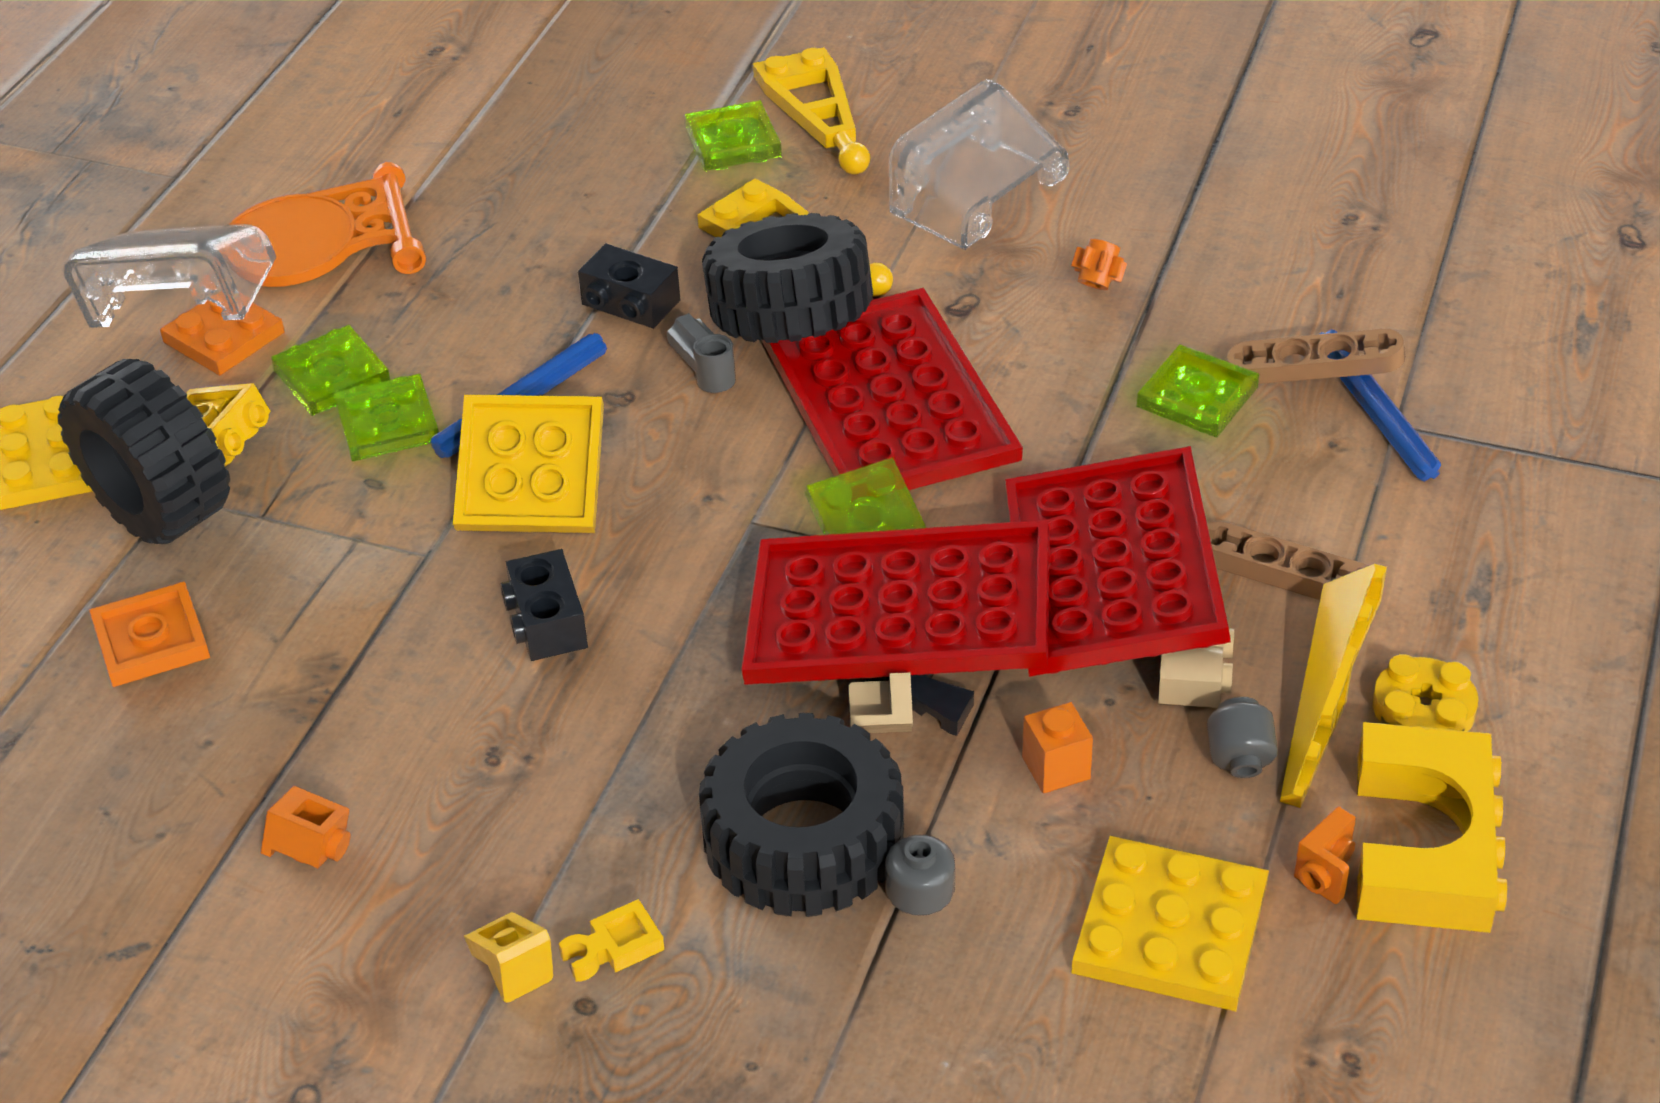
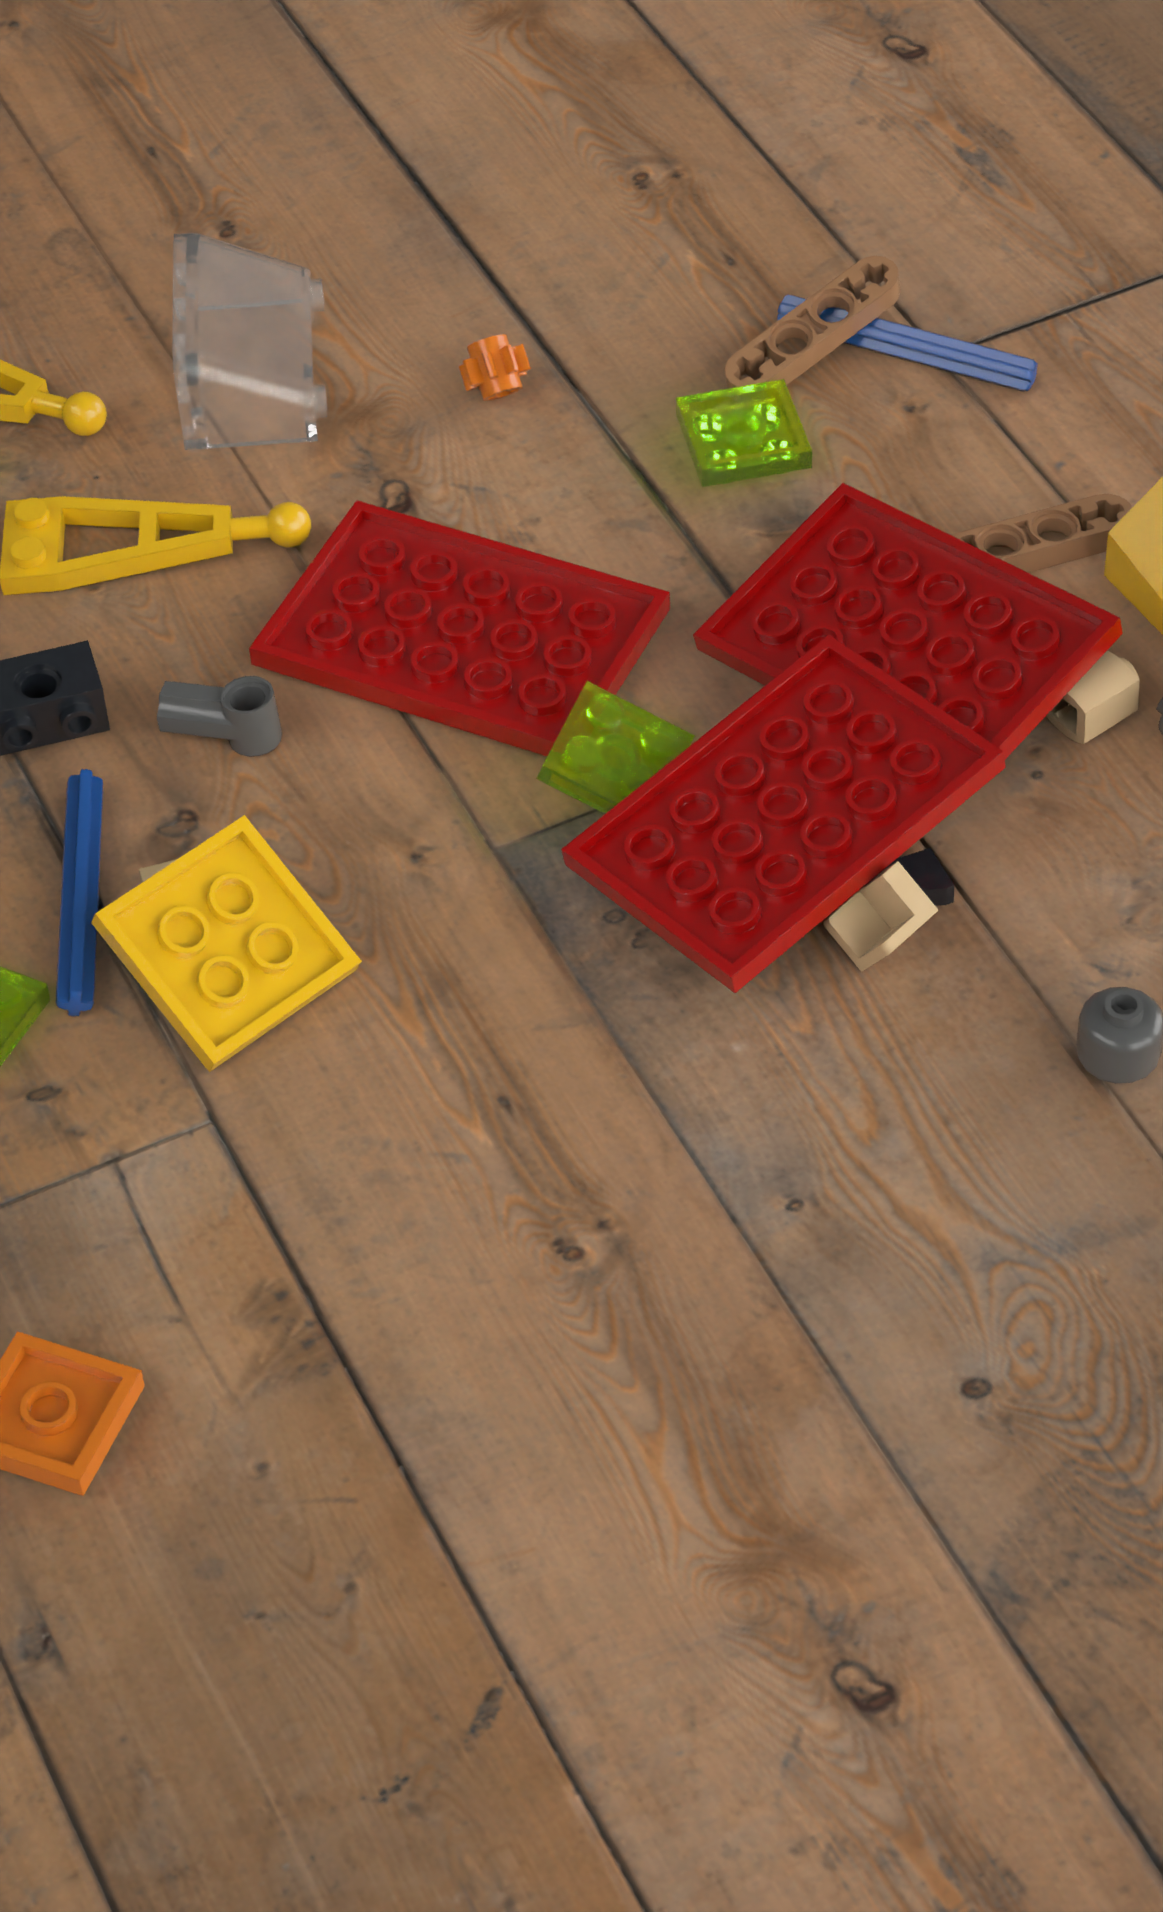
camera: 45 degrees left, 5 degrees up
(306, 828) = (517, 1449): orange brick -> none
(515, 953) = (869, 1382): yellow slope -> none
(545, 605) = (431, 1067): black brick -> none
(617, 938) = (938, 1304): yellow plate -> none
(787, 277) = (237, 572): black tyre -> none
(801, 865) = (949, 1125): black tyre -> none
(1057, 747) = (1074, 840): orange brick -> none

